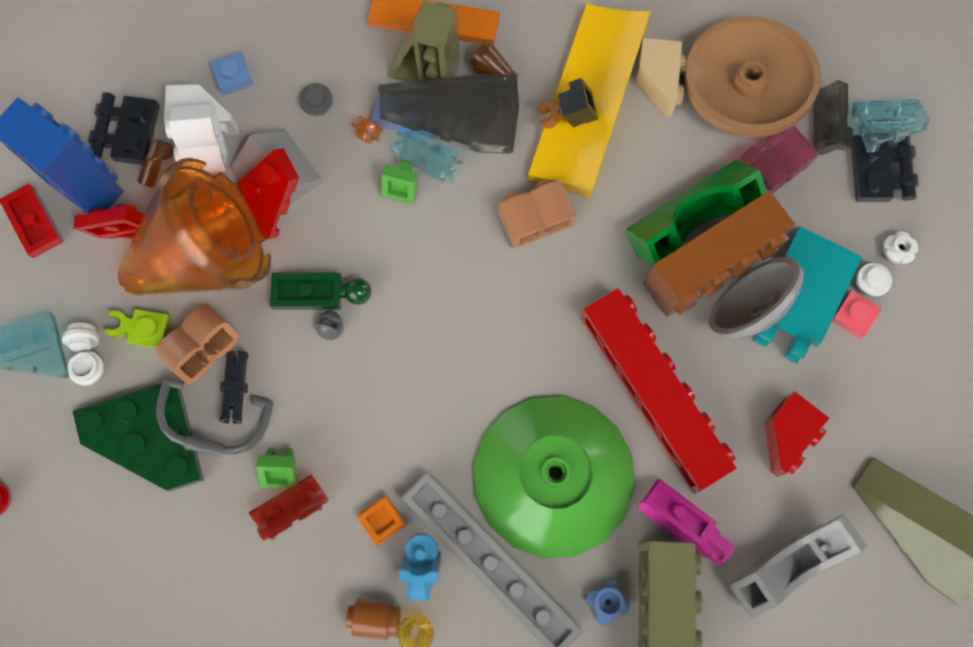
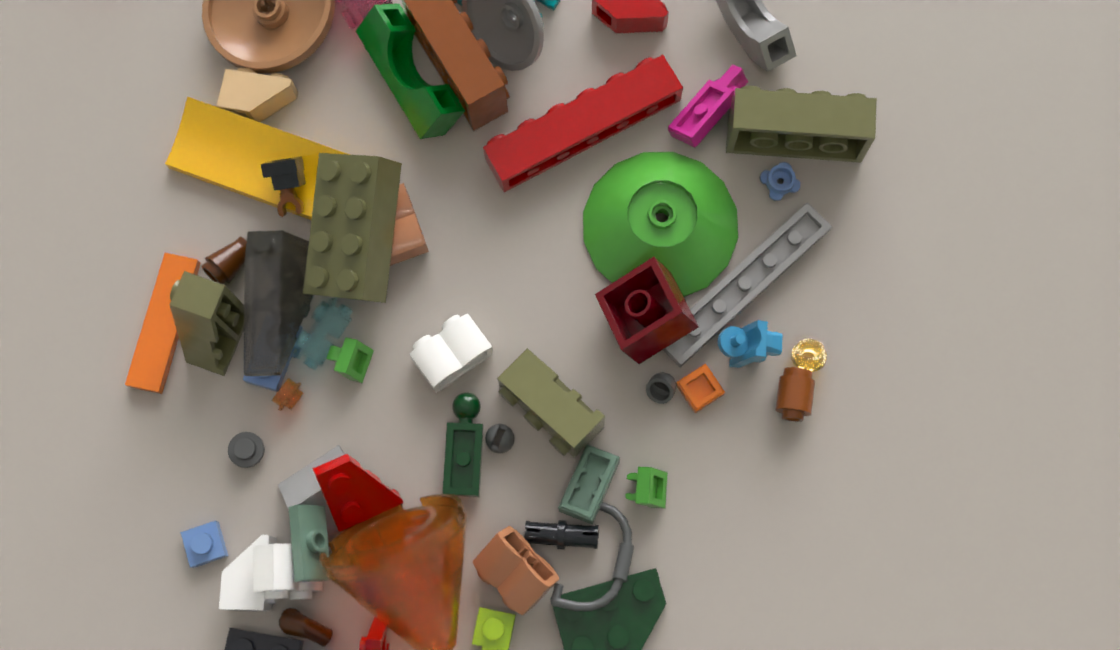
camera: 85 degrees left, 0 degrees up
(220, 151) = (308, 541): none -> sand green plate
(281, 411) = (589, 484): none -> sand green plate
(288, 506) = (695, 488): clear red hinge -> none
(358, 369) = (550, 404): none -> olive wedge
(379, 480) = (661, 388): none -> dark grey hinge
(410, 273) = (450, 352): none -> white brick
(451, 458) = (646, 310): none -> dark red brick
(523, 168) = (352, 227): none -> olive brick

